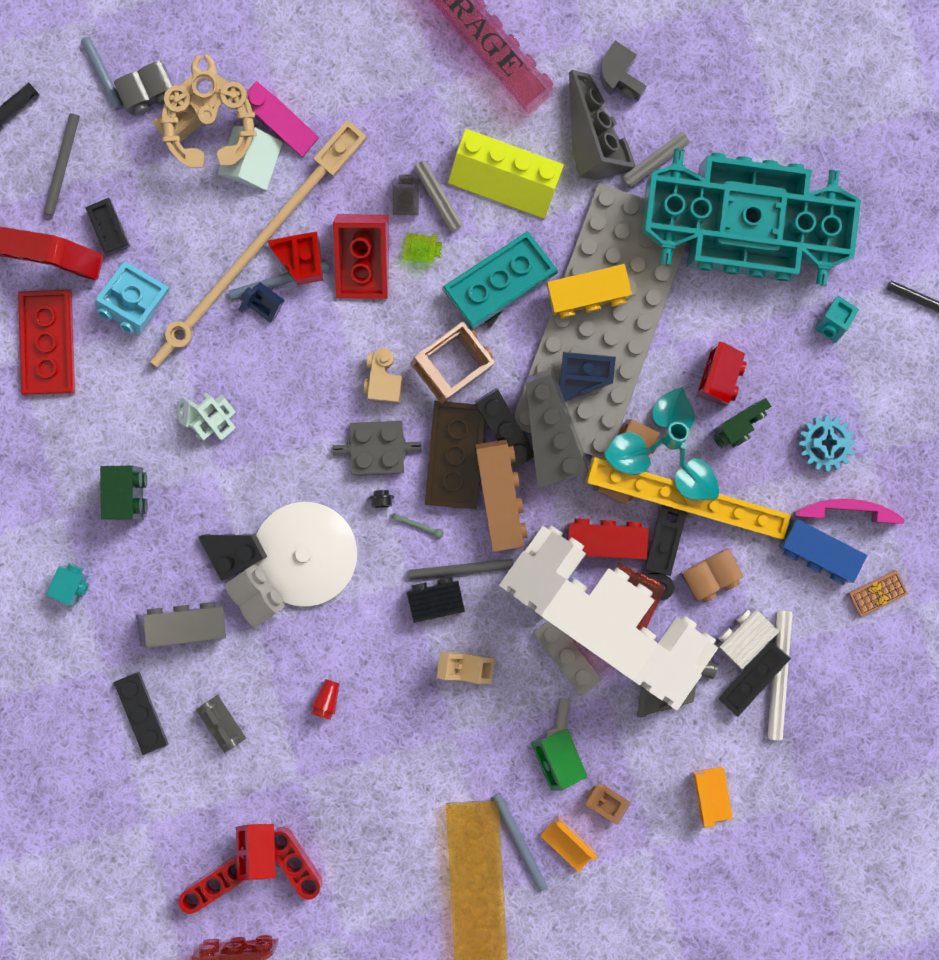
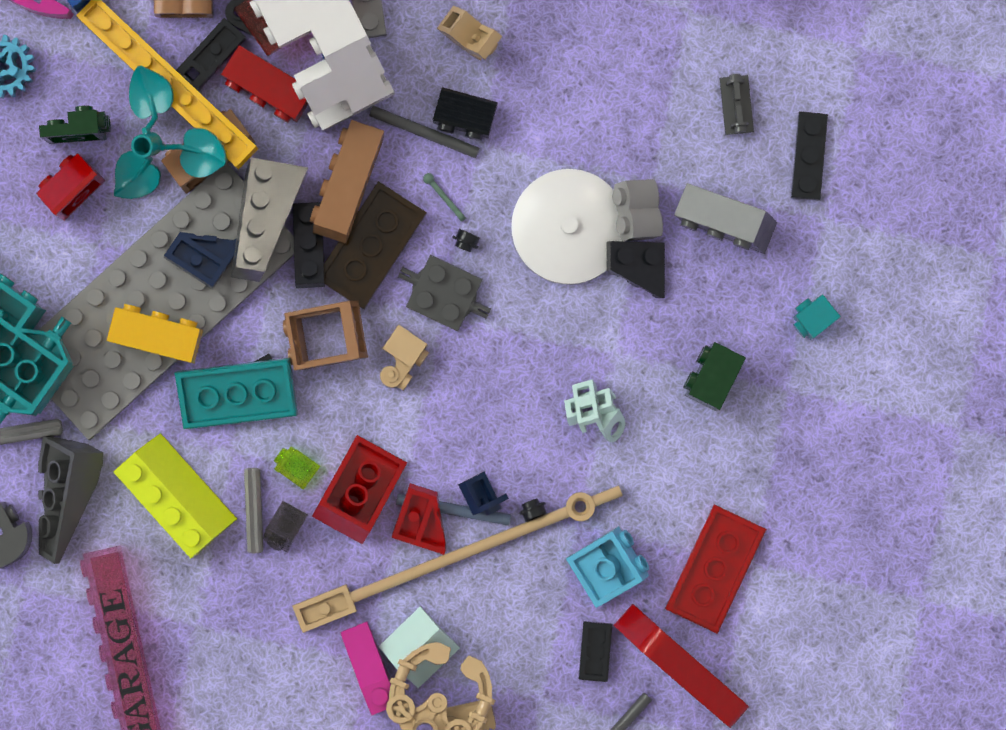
camera: 155 degrees left, 0 degrees up
(215, 312) = (533, 509): none -> black plate
(326, 700) = (622, 73): red cone -> none

